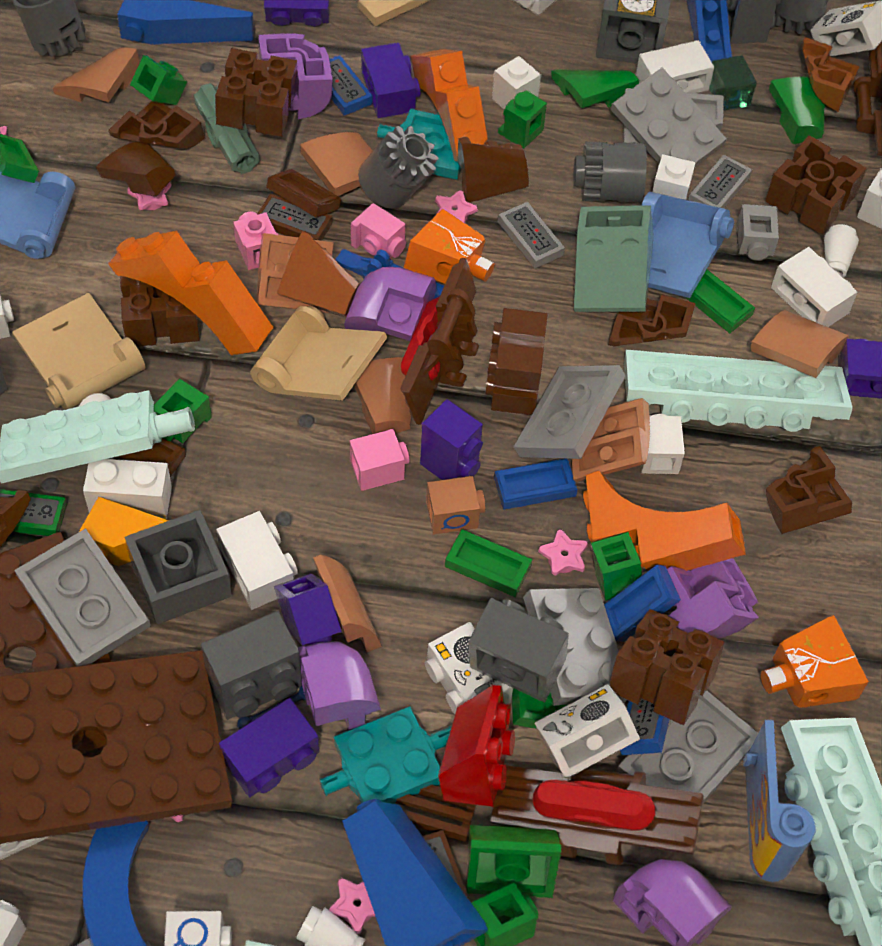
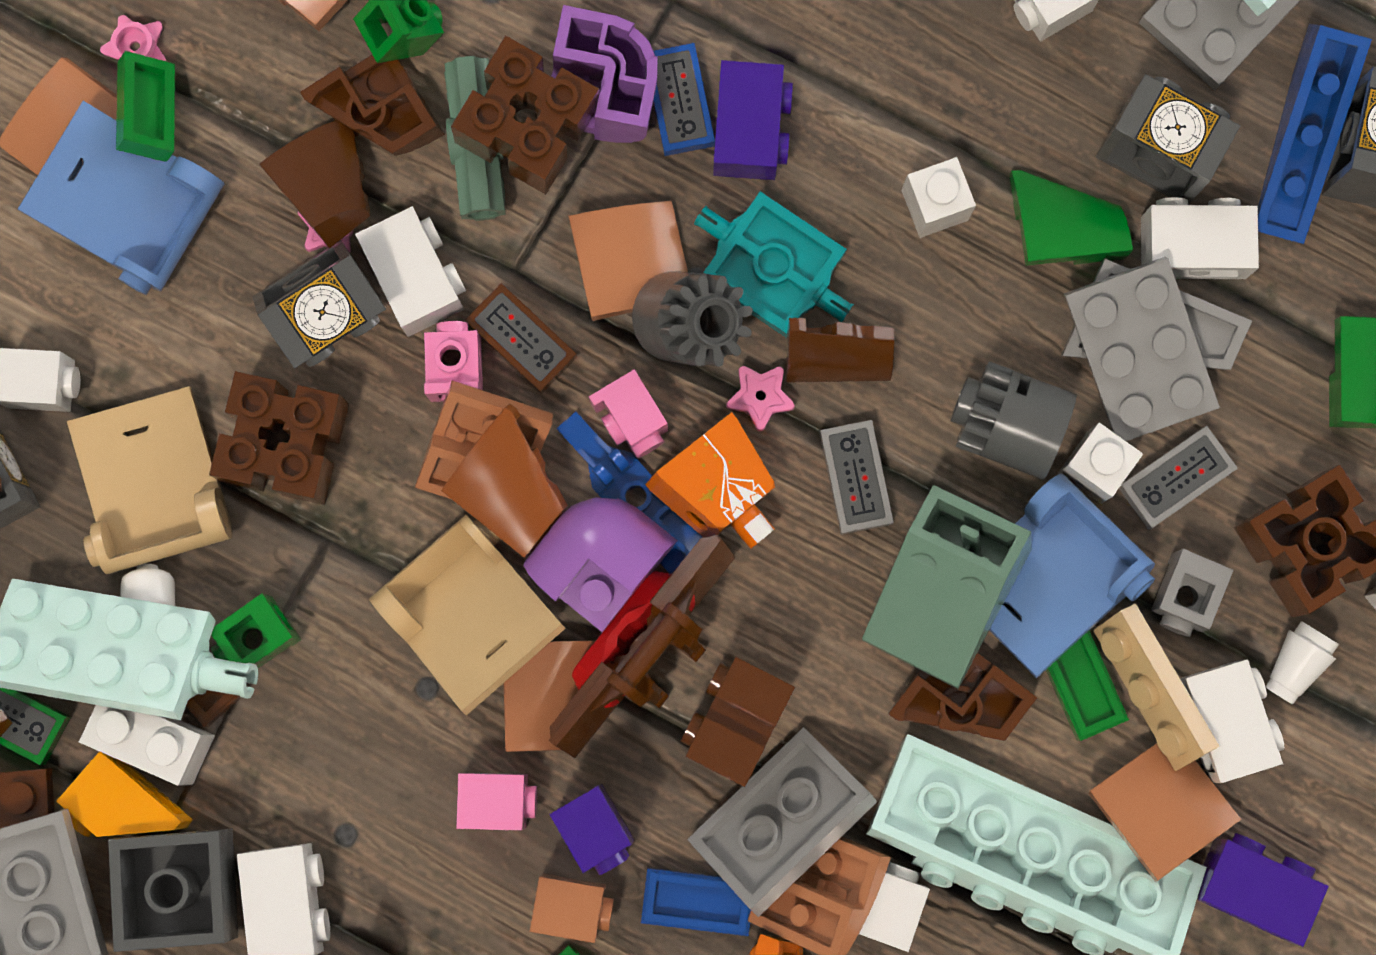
camera: 25 degrees right, 25 degrees up
(166, 208) = (318, 306): none -> brick
(206, 288) = (317, 459): orange arch -> none
(210, 198) = (410, 270): none -> white brick
(303, 193) = (548, 300): reddish brown tile -> none
(459, 105) = (820, 206): orange arch -> none
(523, 118) = (924, 265): green brick -> none
(733, 81) = (1281, 290): clear green brick -> none
(763, 280) = (1155, 687): none -> tan plate

